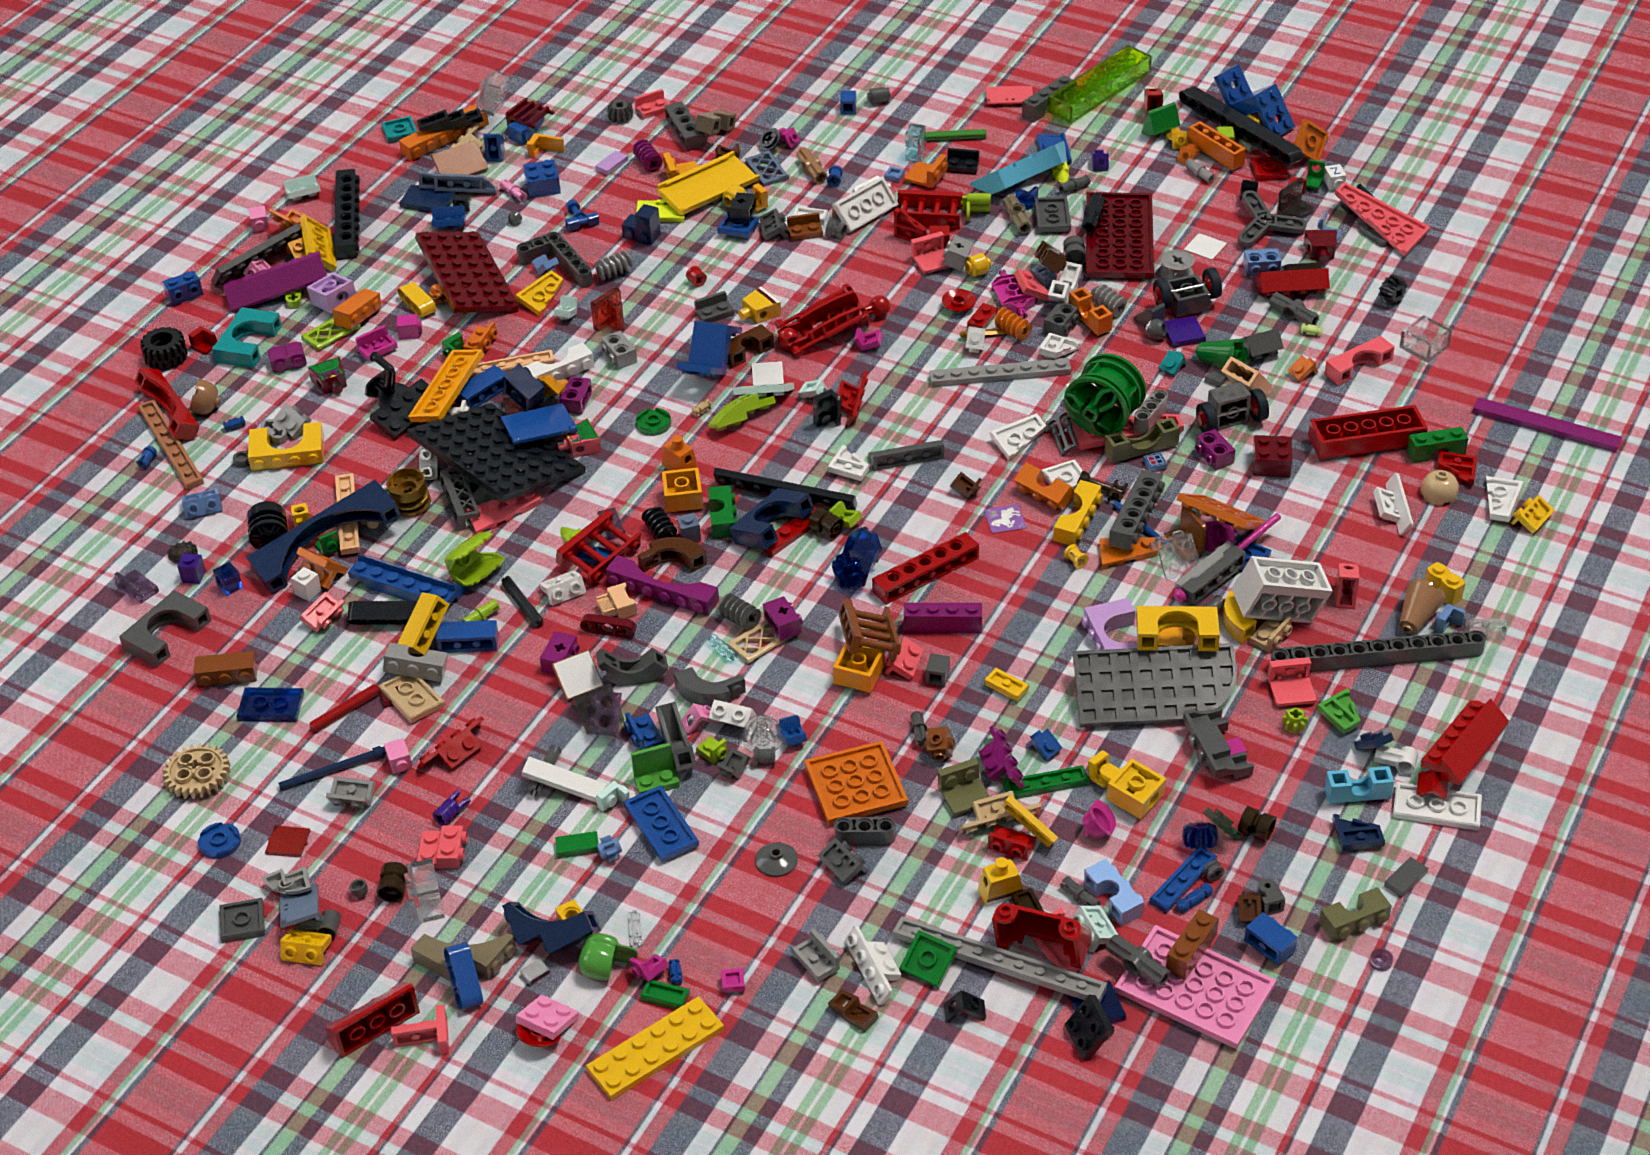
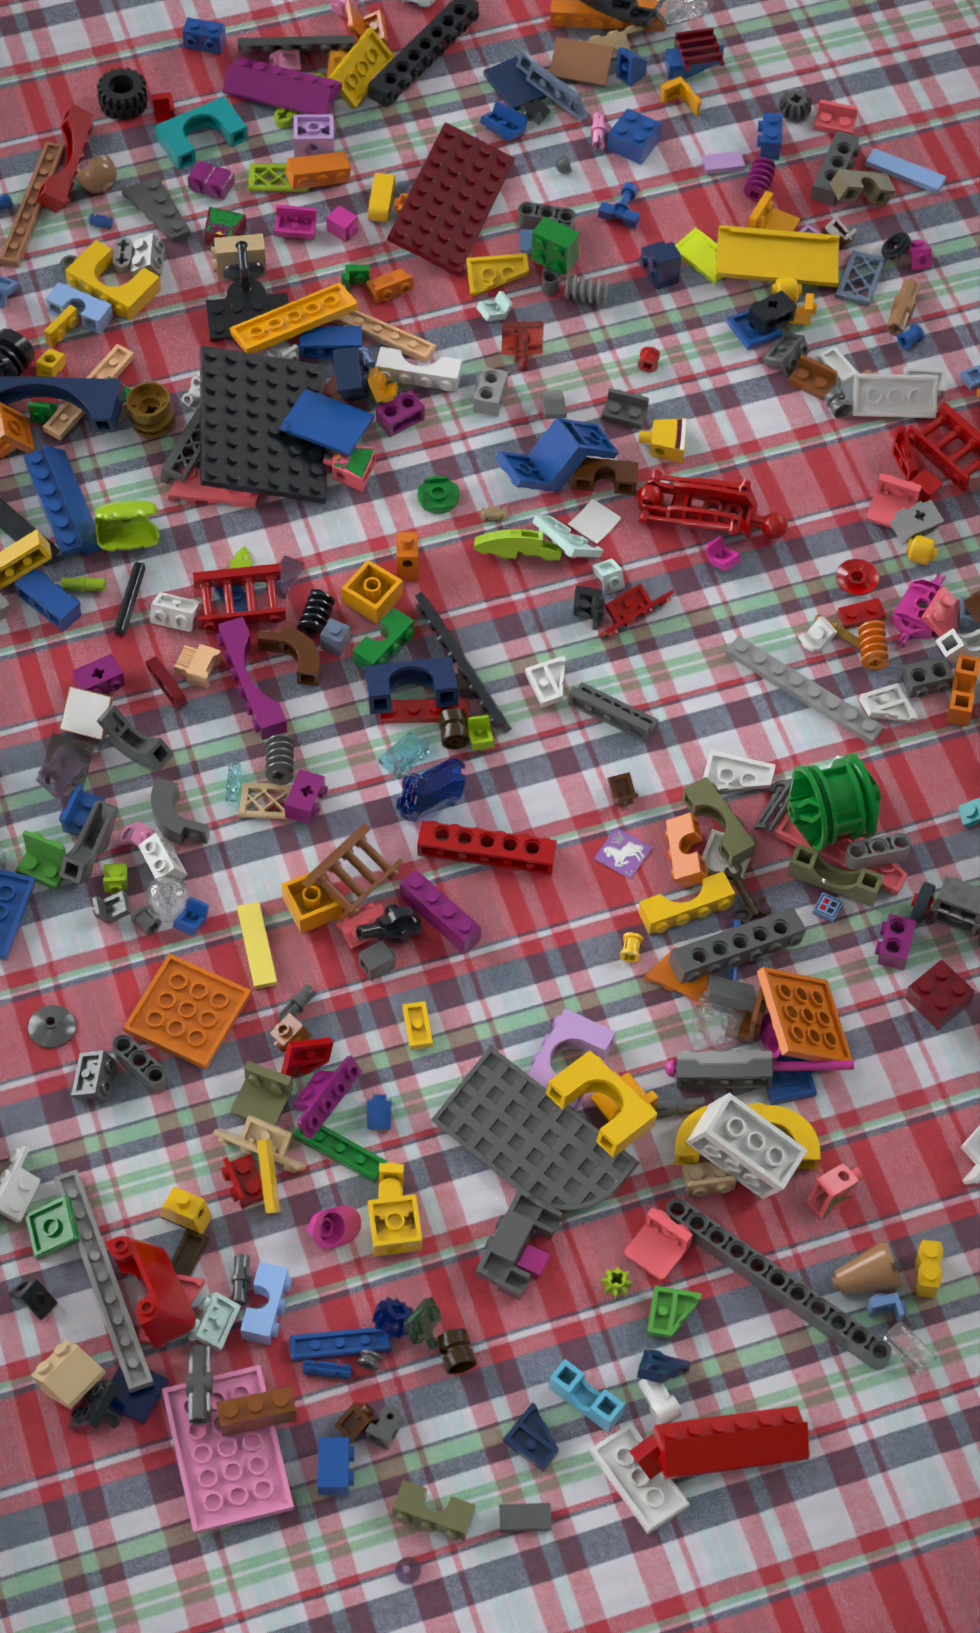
camera: 40 degrees right, 15 degrees up
(266, 393) = (158, 206): none -> dark grey wing
(269, 474) = (95, 312): none -> light blue arch
(282, 486) = (61, 326): none -> yellow plate
(356, 378) = (227, 254): none -> tan brick
(573, 247) = (555, 246): none -> green brick
(625, 131) = (771, 135): none -> blue brick
(674, 326) = (553, 404): none -> dark grey slope
(730, 105) = (905, 171): none -> light blue tile
(810, 559) = (404, 754): none -> clear light blue bracket
(851, 718) = (256, 945): none -> light yellow tile
(927, 641) = (392, 925): none -> black pin
(964, 744) = (306, 1055): none -> red wing
(1051, 1024) = (67, 1374): none -> tan slope
(1065, 461) = (704, 800): none -> olive arch
(1168, 529) = (731, 993): none -> dark grey tile

